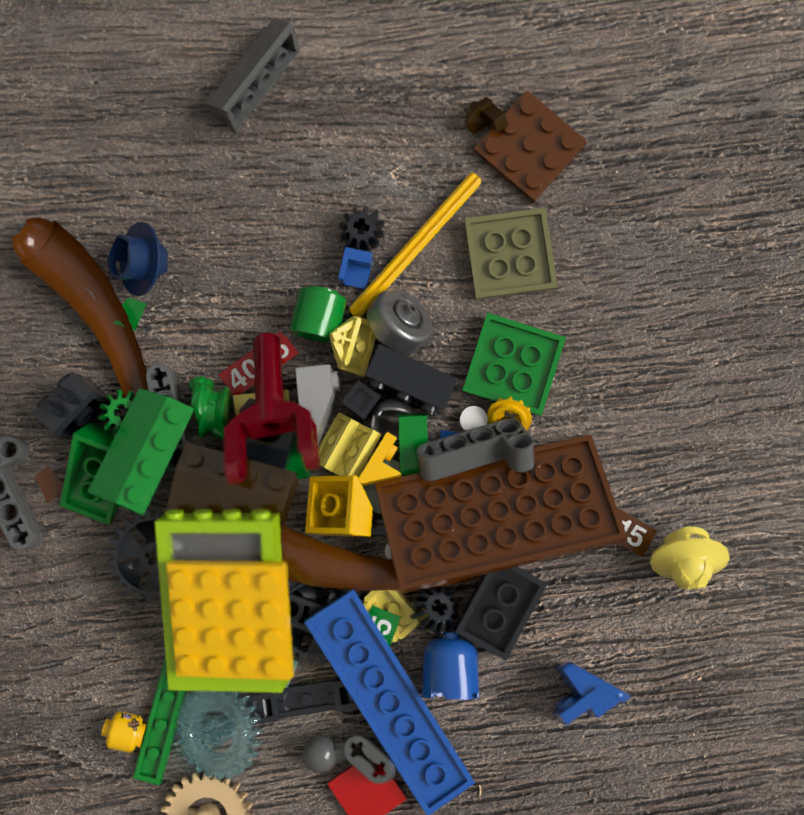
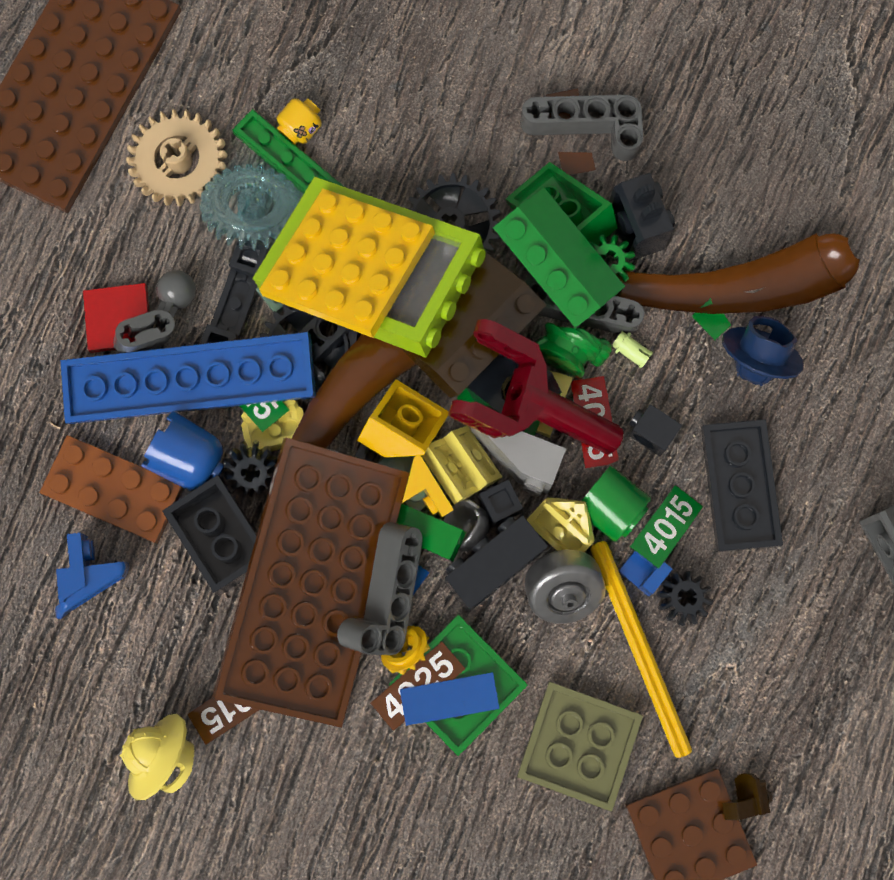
camera: 110 degrees right, 5 degrees down
(186, 362) = (631, 349): none -> yellowish green pin
(242, 314) = (654, 429): none -> black brick
(253, 228) = (741, 486): none -> black plate
(314, 268) = (666, 526): none -> green sticker
(472, 418) = (423, 611): white tile -> none
(507, 715) = (110, 489): none -> dark orange plate
(528, 364) = (449, 699): none -> blue sticker
(532, 391) = (438, 667): none -> reddish brown sticker

